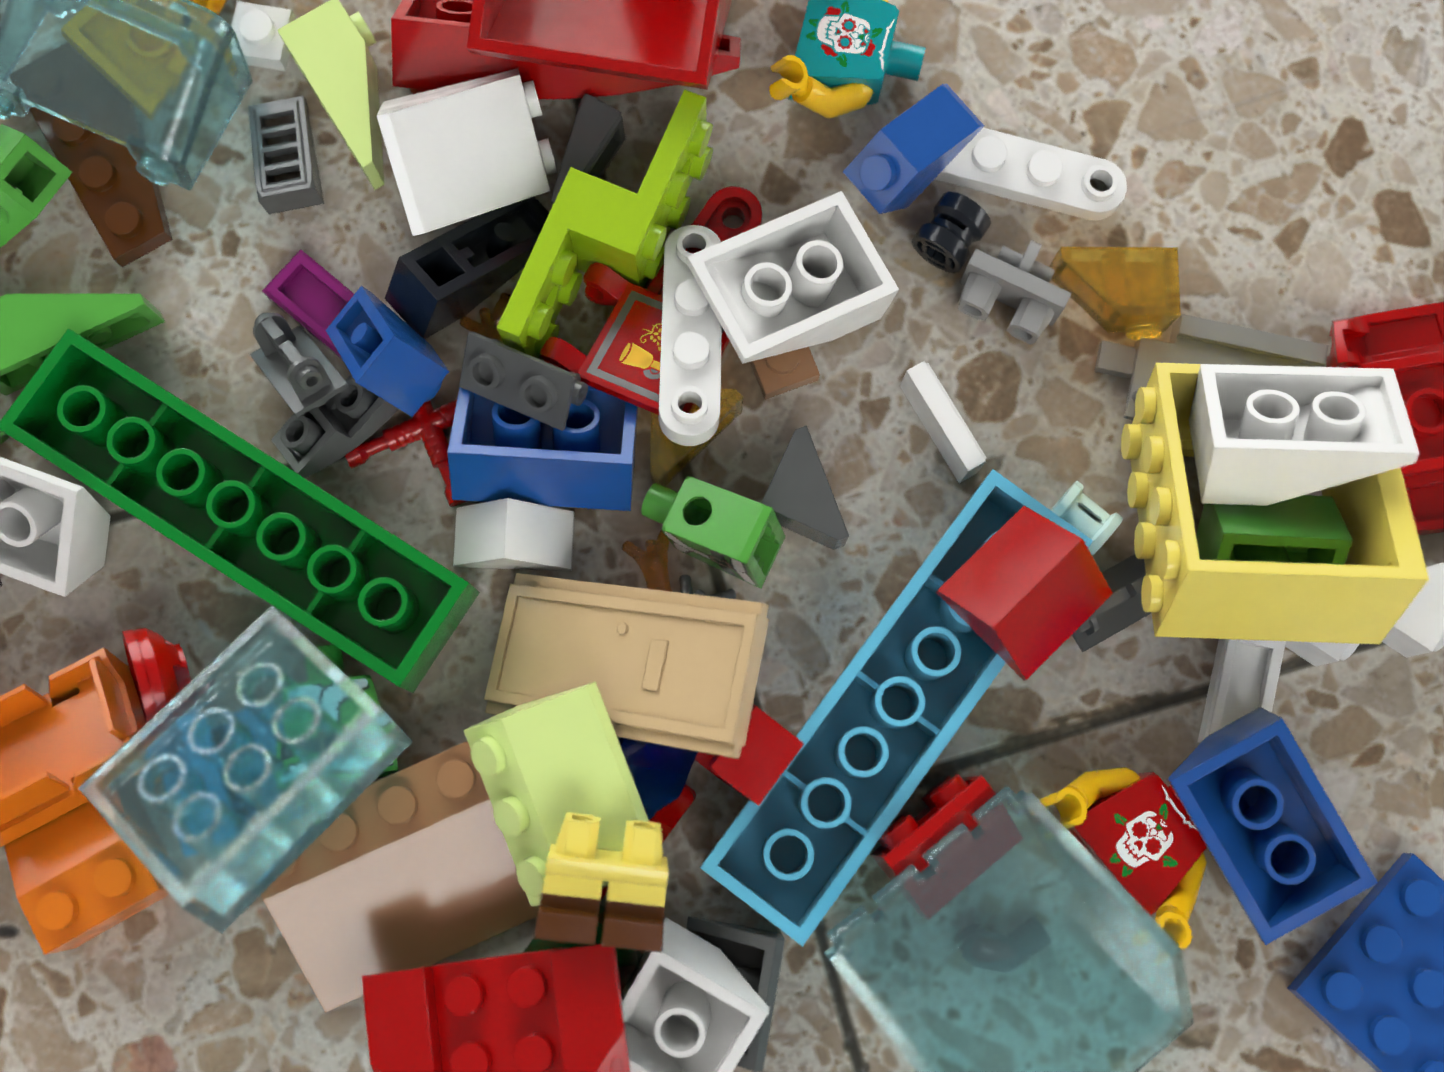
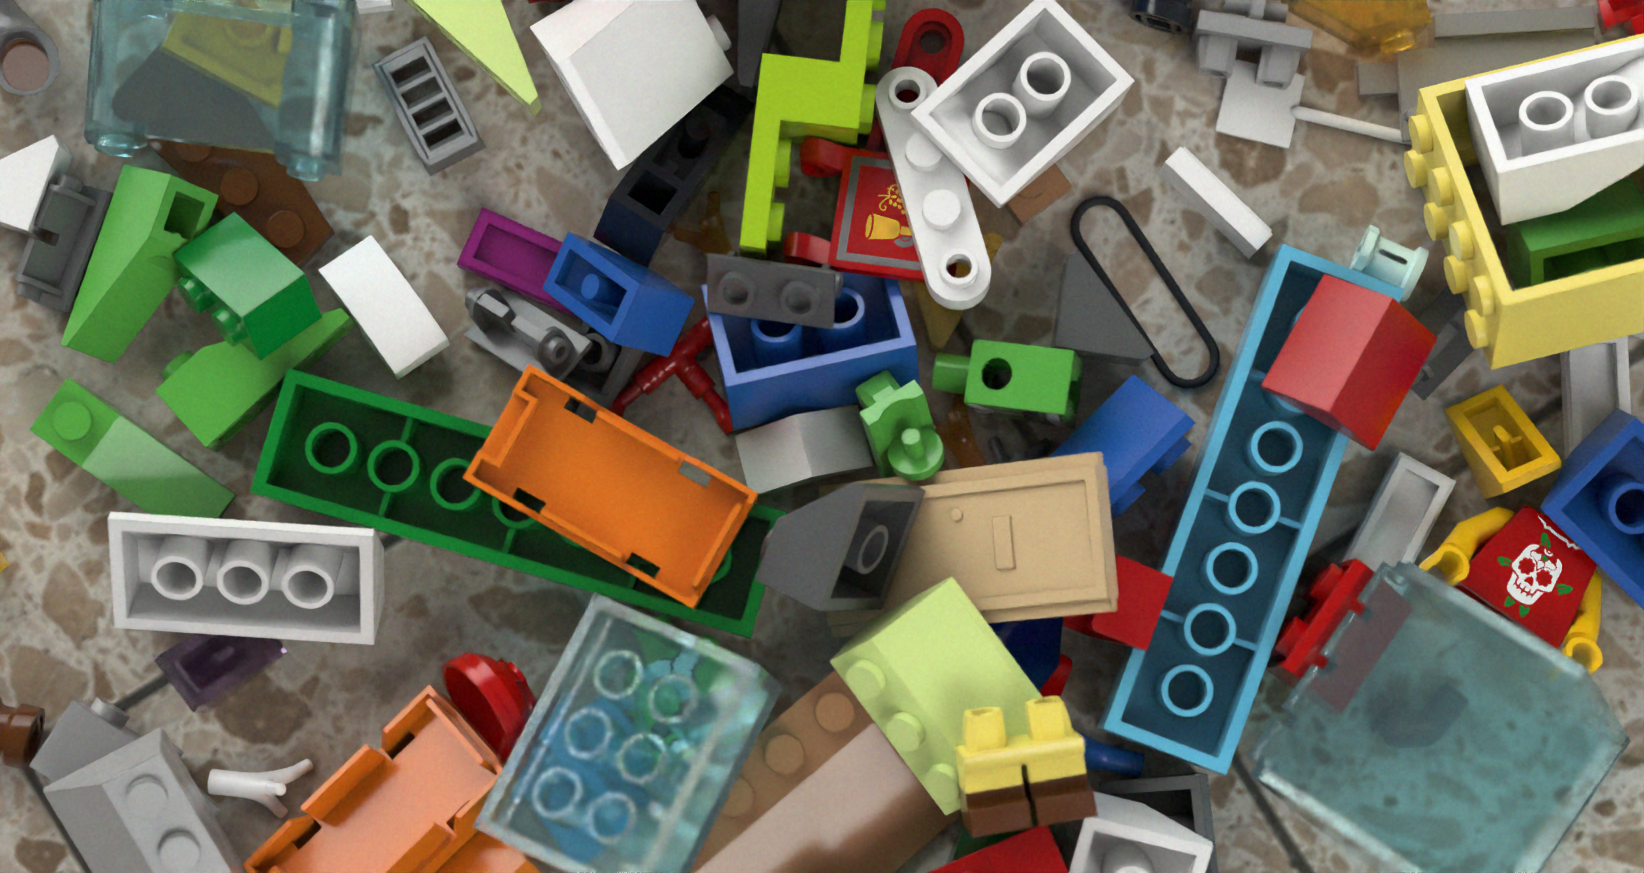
camera: 20 degrees left, 5 degrees up
(60, 252) = (245, 287): none -> green brick
(185, 309) = (384, 307): none -> white slope
(312, 513) = (611, 487): none -> orange piece
(506, 626) = (841, 547): none -> dark grey slope
(597, 537) = (899, 428): none -> bright green hips
(690, 889) = (1111, 759): none -> blue bar
(805, 607) = (1135, 433): none -> blue slope
(904, 547) = (1165, 275): none -> black piece
(1013, 362) = (1270, 113): none -> white piece
(1034, 748) = (1399, 514): none -> white tile
(1144, 709) = (1500, 442): none -> yellow slope

